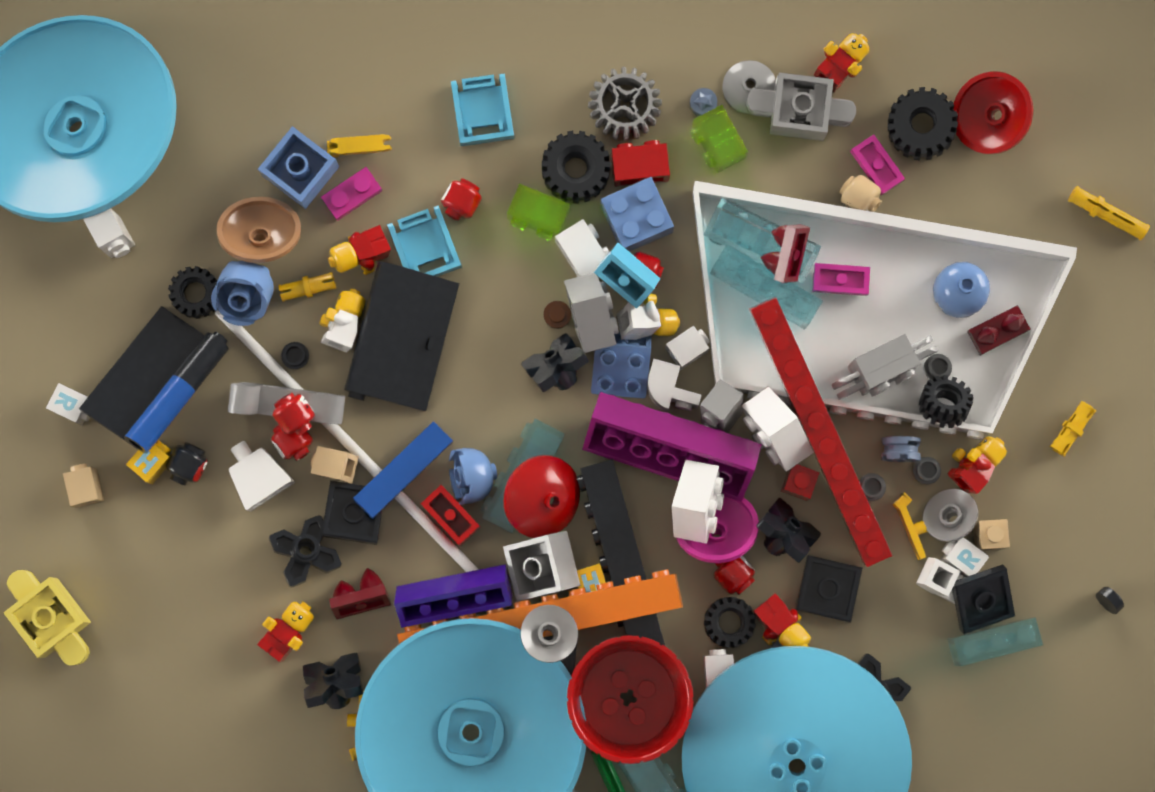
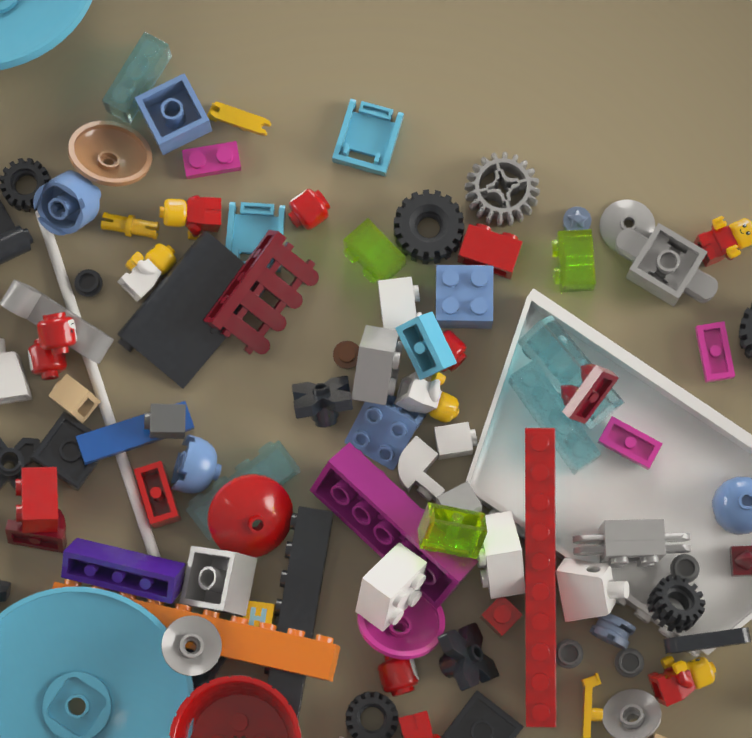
camera: 30 degrees right, 5 degrees down
(248, 148) = (137, 77): none -> clear light blue brick
(348, 568) = (38, 499): none -> red brick
(427, 447) = (166, 421): none -> dark grey brick
(441, 291) = (240, 294): none -> dark red fence
(729, 428) = (452, 530): none -> clear neon green brick
(860, 194) = (685, 371): tan head -> none
(865, 424) = (588, 589): none -> white torso
(987, 421) = (707, 640): none -> black beam

